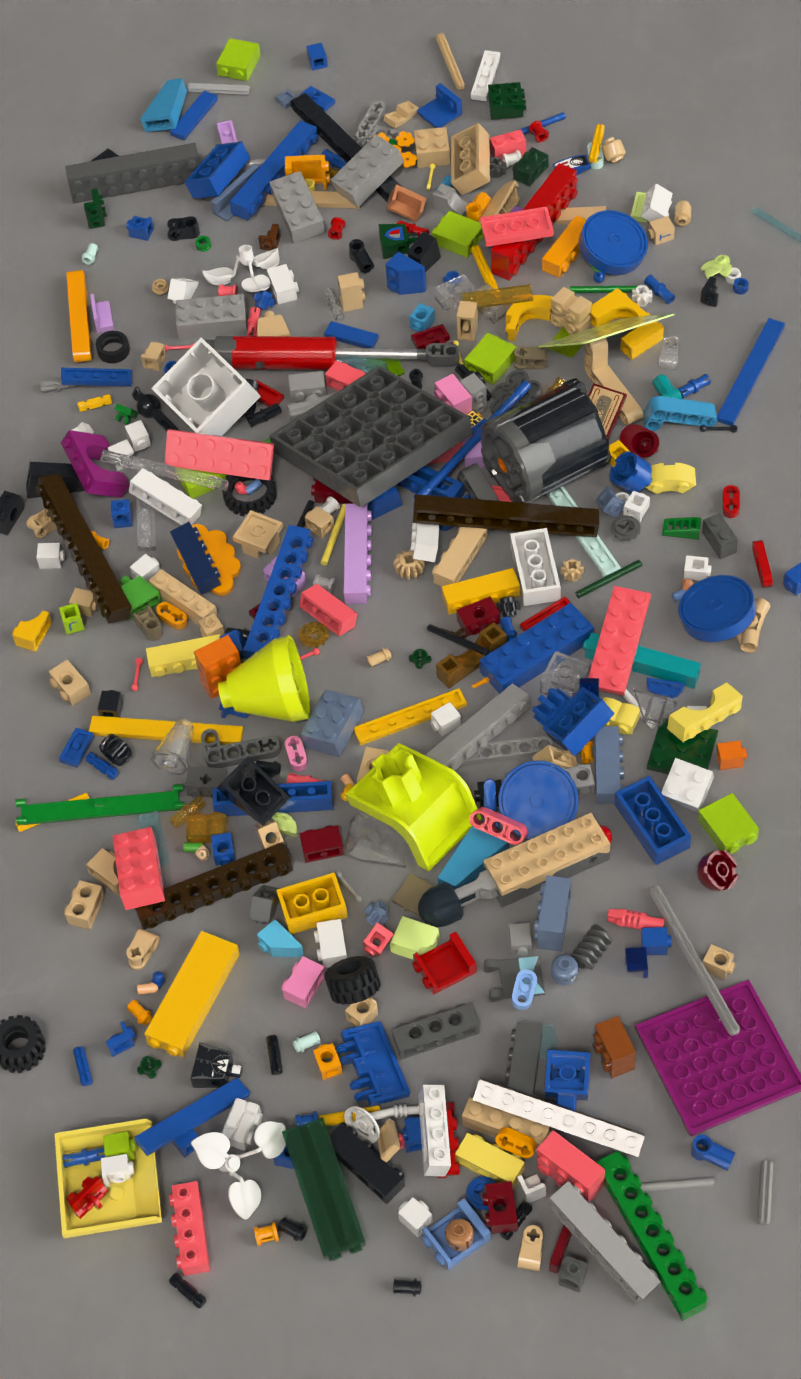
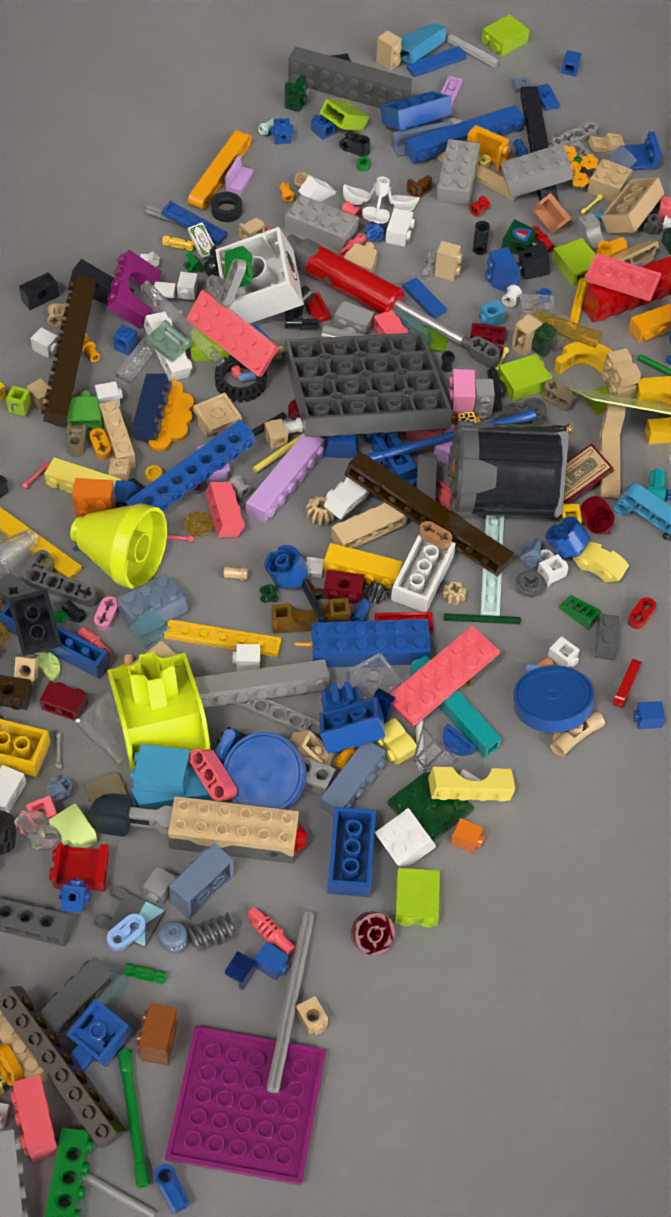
camera: 25 degrees right, 0 degrees up
(108, 251) = (282, 127): none -> blue brick
(116, 388) = (201, 239): none -> white tile
(148, 126) = (388, 50): none -> tan brick
(155, 207) = (344, 114): none -> lime brick
(158, 307) = (287, 194): none -> light orange pin
(167, 497) = (166, 345): none -> sand green plate
(189, 392) = (240, 253): none -> green brick
(195, 425) = (226, 291): none -> light grey beam
(240, 615) = (152, 473): none -> yellow tile
(346, 742) = (148, 627): none -> clear light blue piece
(389, 951) = (37, 830): none -> clear brick
(421, 627) = (286, 567): none -> blue brick
(424, 290) = (510, 297): none -> white bush
(429, 120) = (622, 157): none -> sand blue brick
(439, 615) = (315, 567): none -> white tile
(454, 846) = (161, 769): none -> dark azure brick
(460, 987) = (74, 895): none -> blue brick
(484, 316) = (543, 339): none -> clear green leg
(526, 530) = (435, 535): none -> medium nougat beam
(562, 1012) = (144, 973): none -> green axle
(675, 1153) = (140, 1165): none -> green piece

